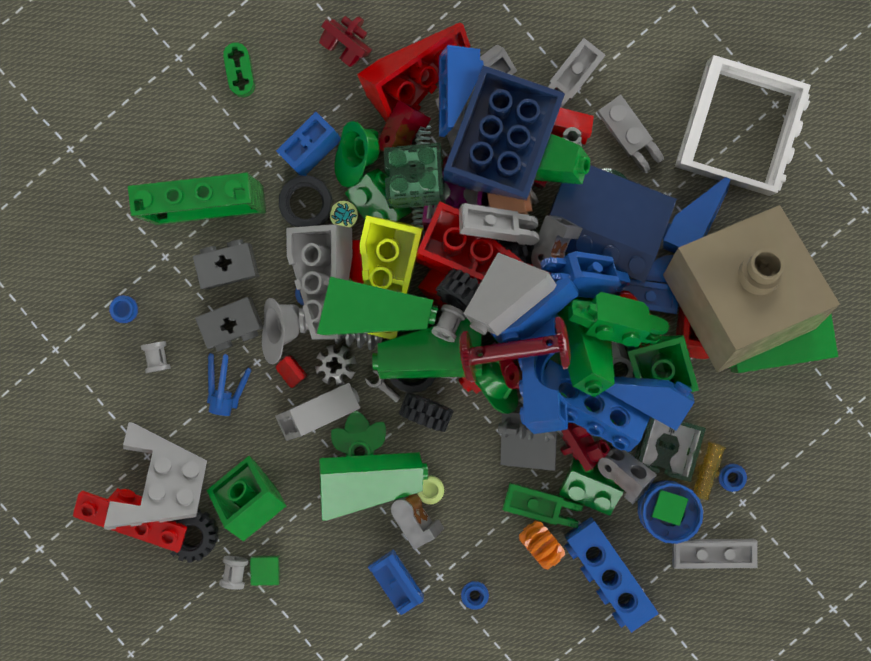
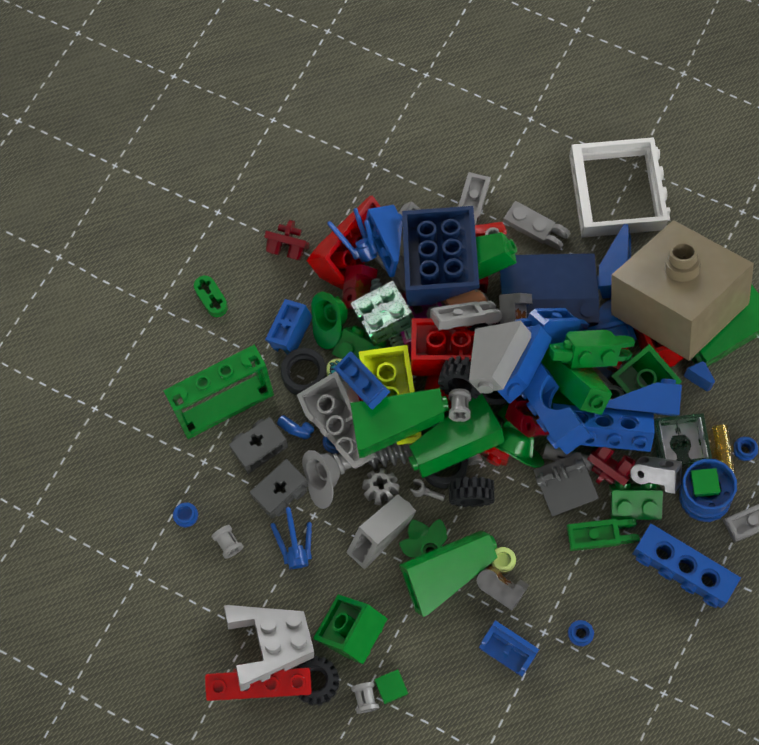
camera: 25 degrees left, 20 degrees down
(270, 262) = (294, 429): none -> blue arm
(291, 371) = (345, 508): red slope -> none
(353, 255) = (361, 380): none -> blue tile
(428, 85) = (365, 248): none -> blue plant
(513, 349) = (522, 395): dark red hose -> none
(542, 544) = (616, 562): orange gear -> none
(725, 381) = (700, 375): none -> blue slope

